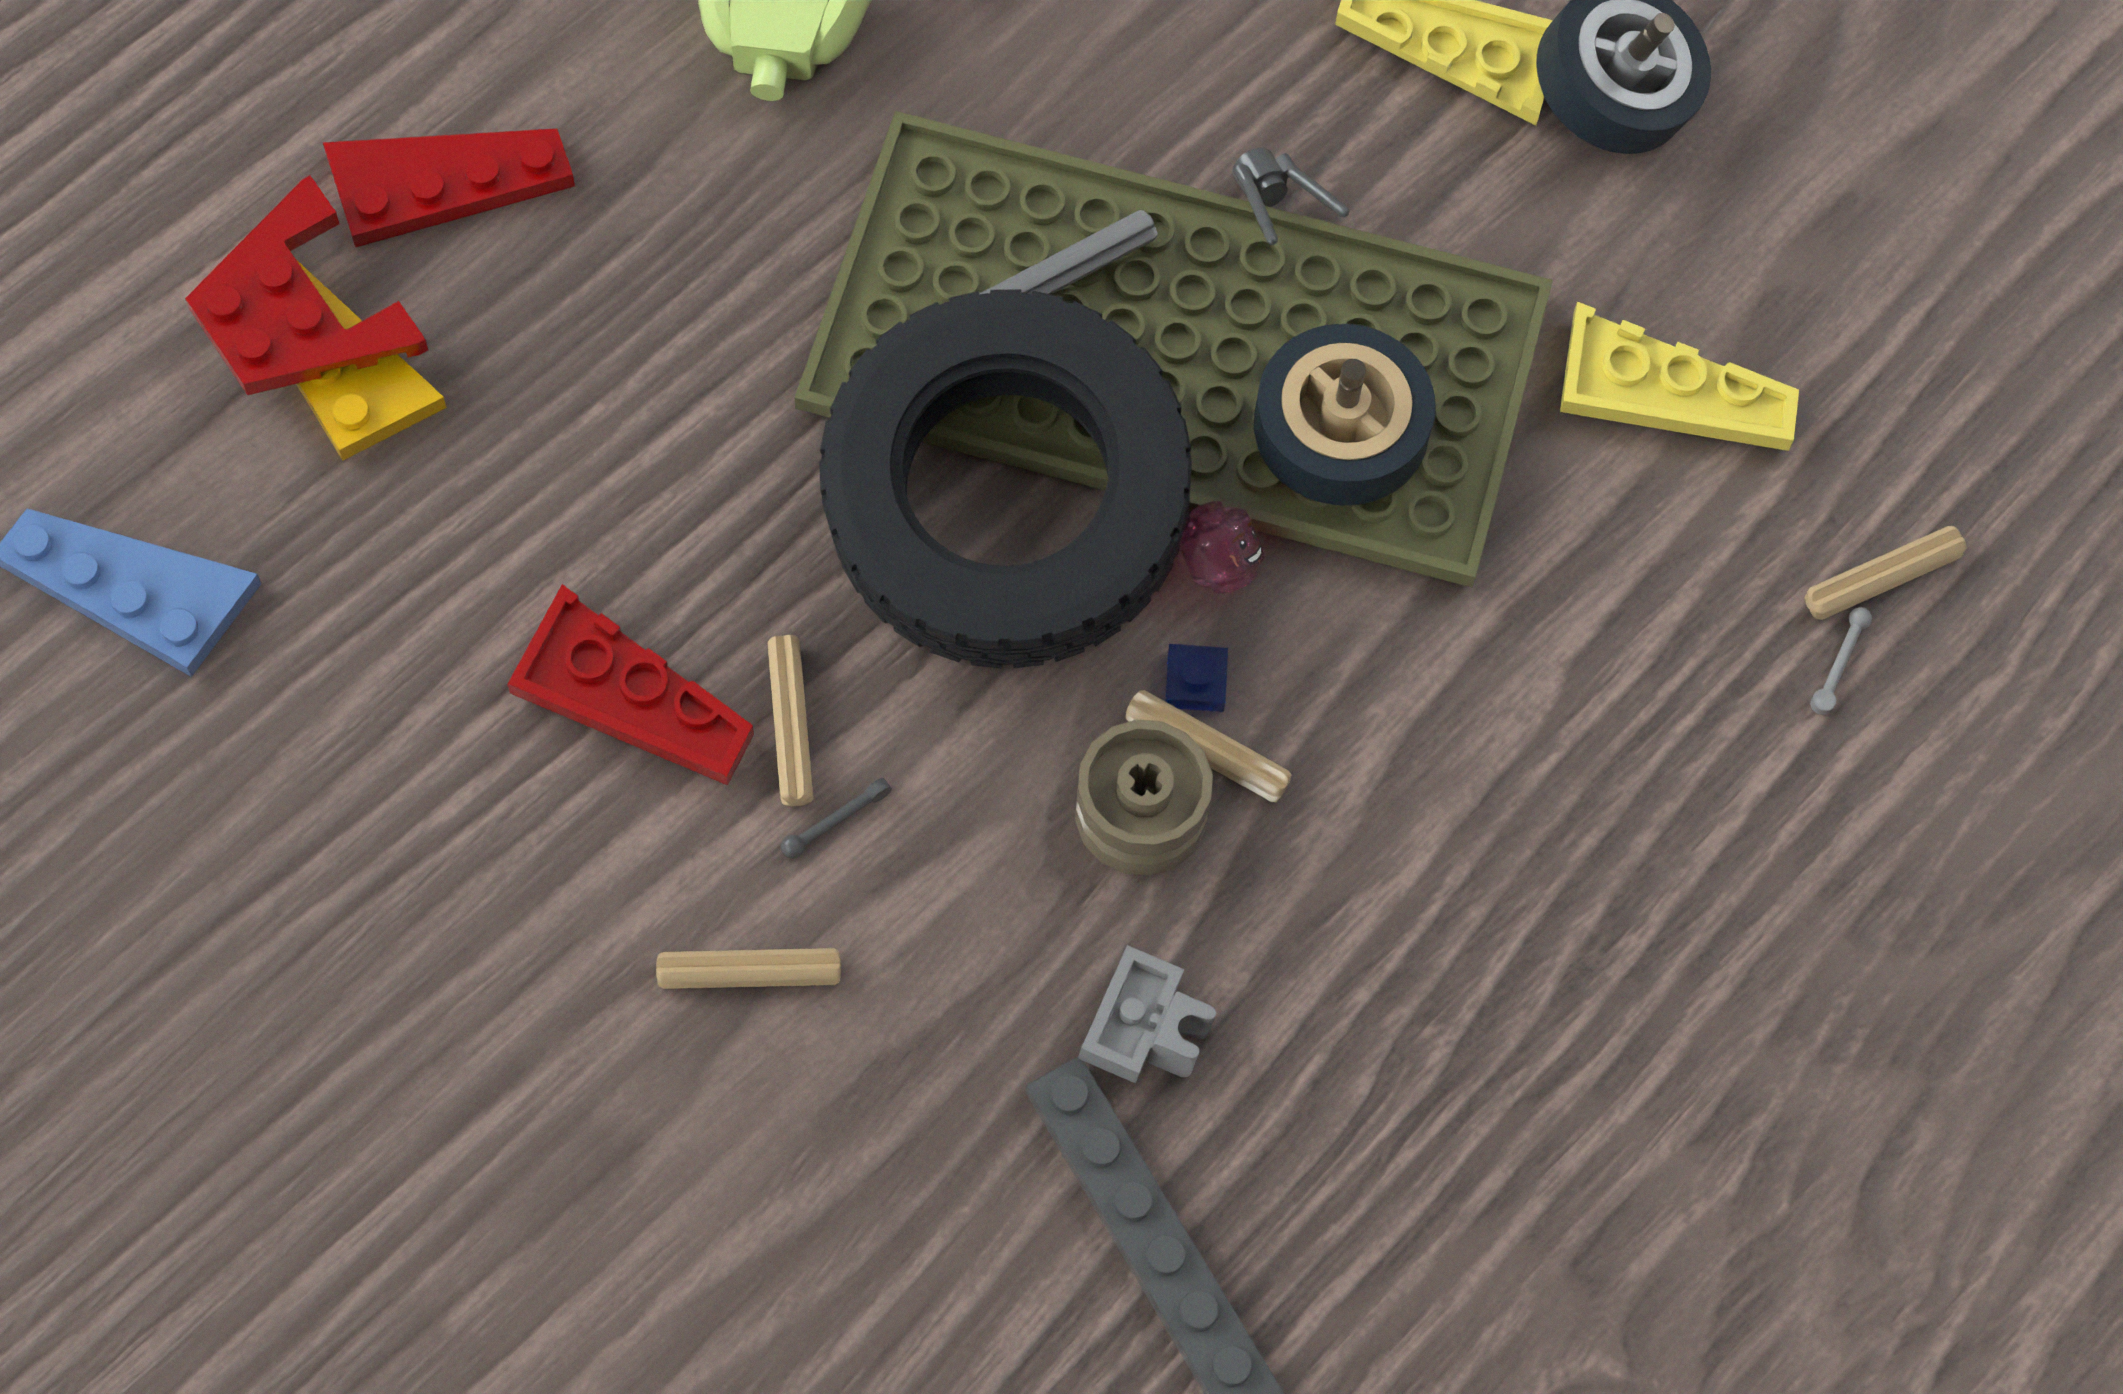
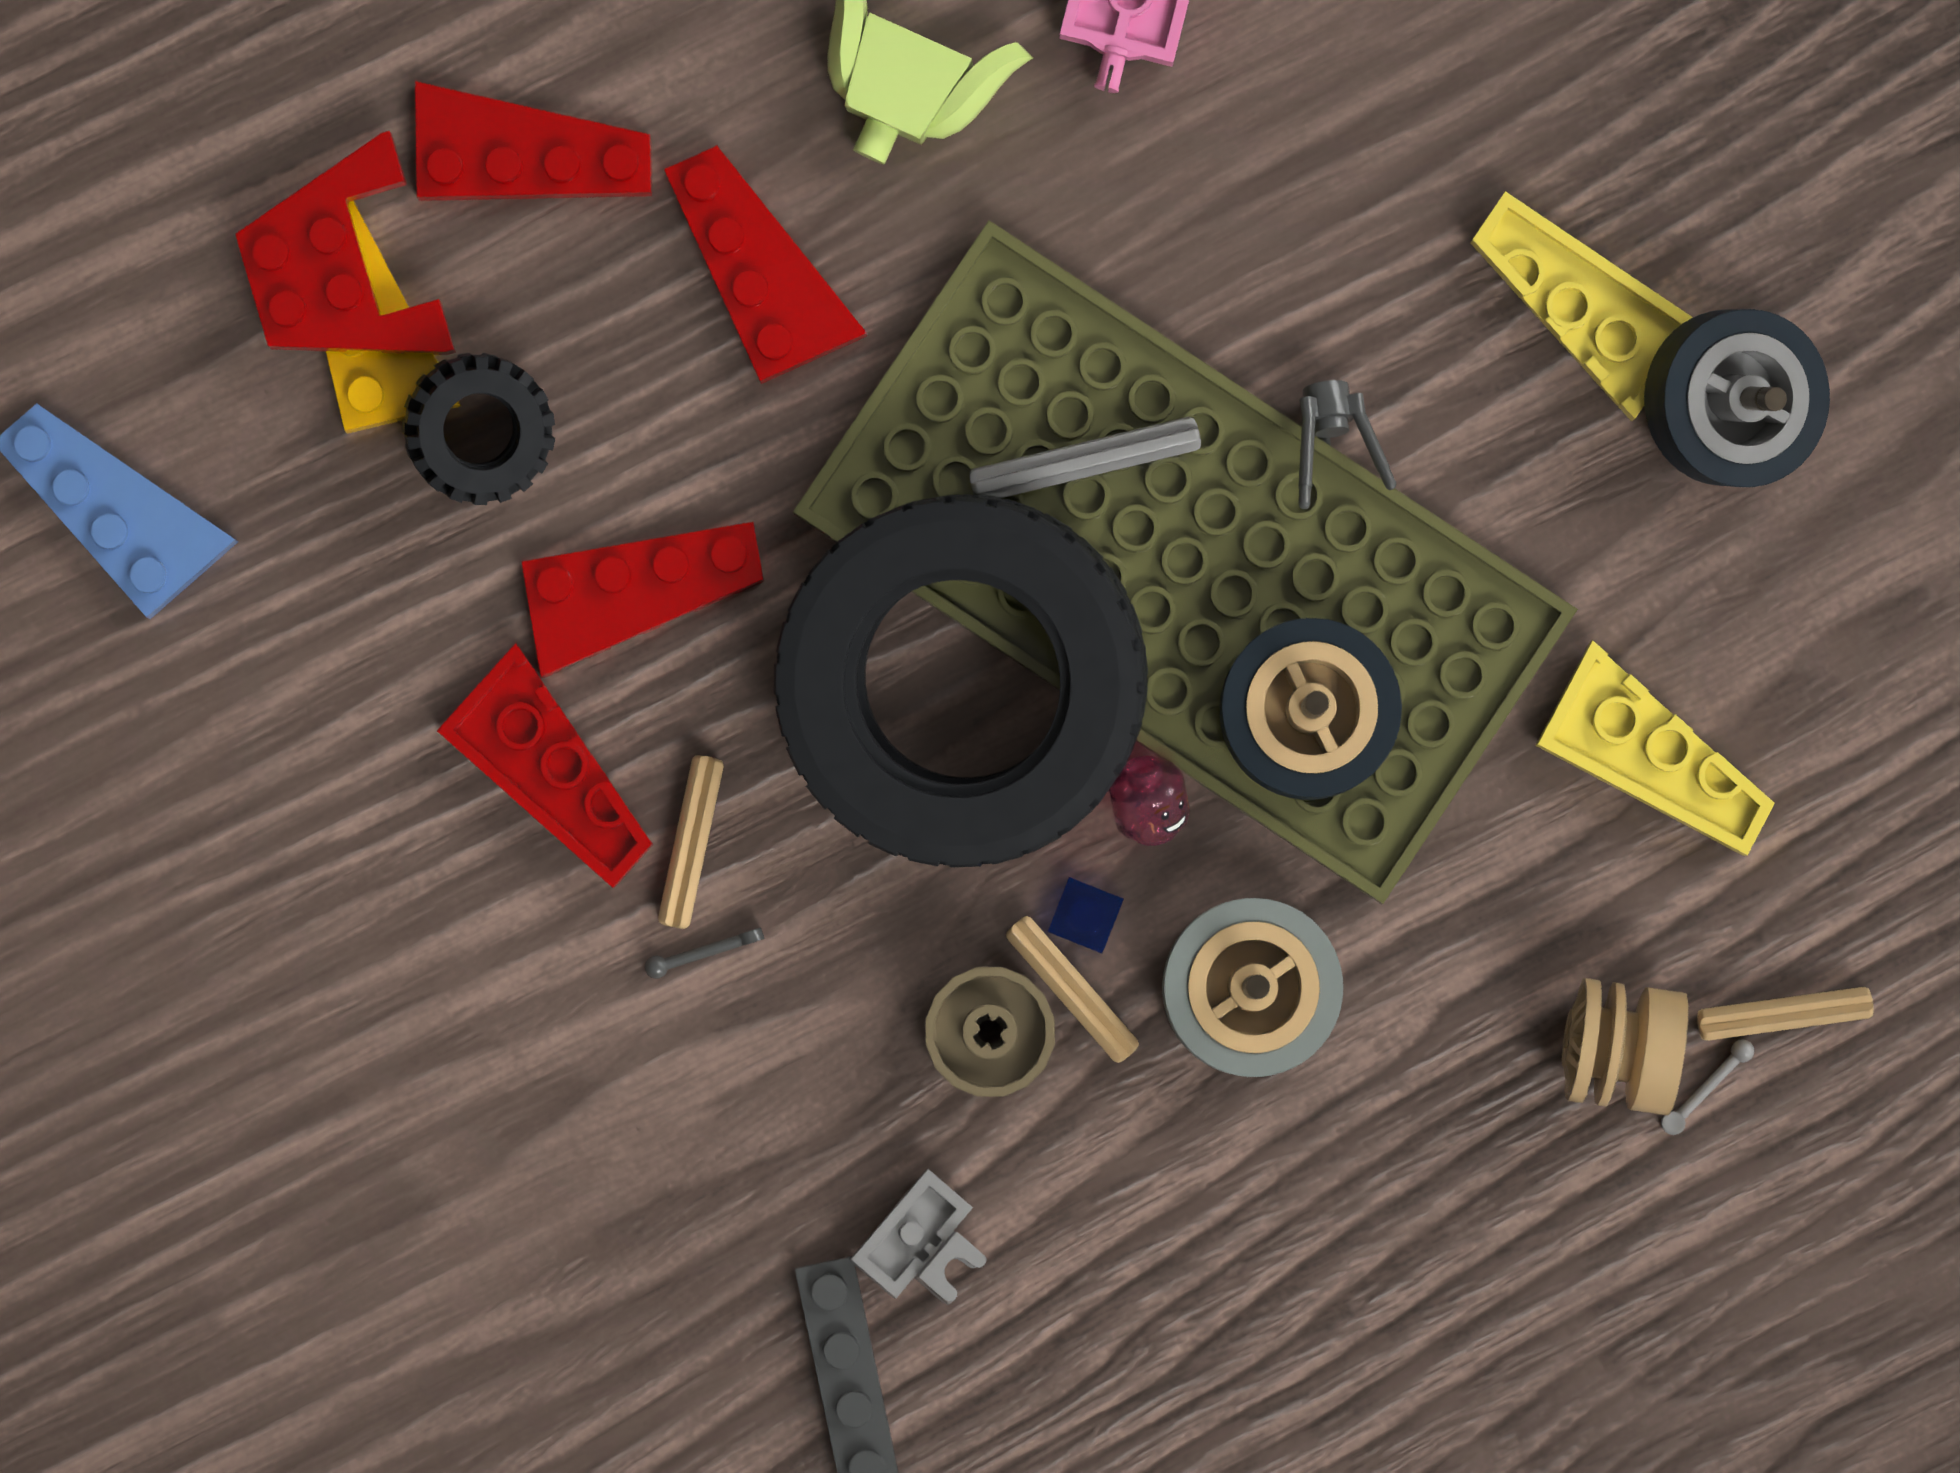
camera: 20 degrees right, 20 degrees up
(480, 358) = (510, 469): none -> black tyre
(644, 522) = (616, 592): none -> red wing
(700, 220) = (765, 280): none -> red wing
(748, 968) = (580, 1076): tan axle -> none
(1381, 684) = (1252, 987): none -> wheel
(1755, 626) = (1625, 1046): none -> tan wheel

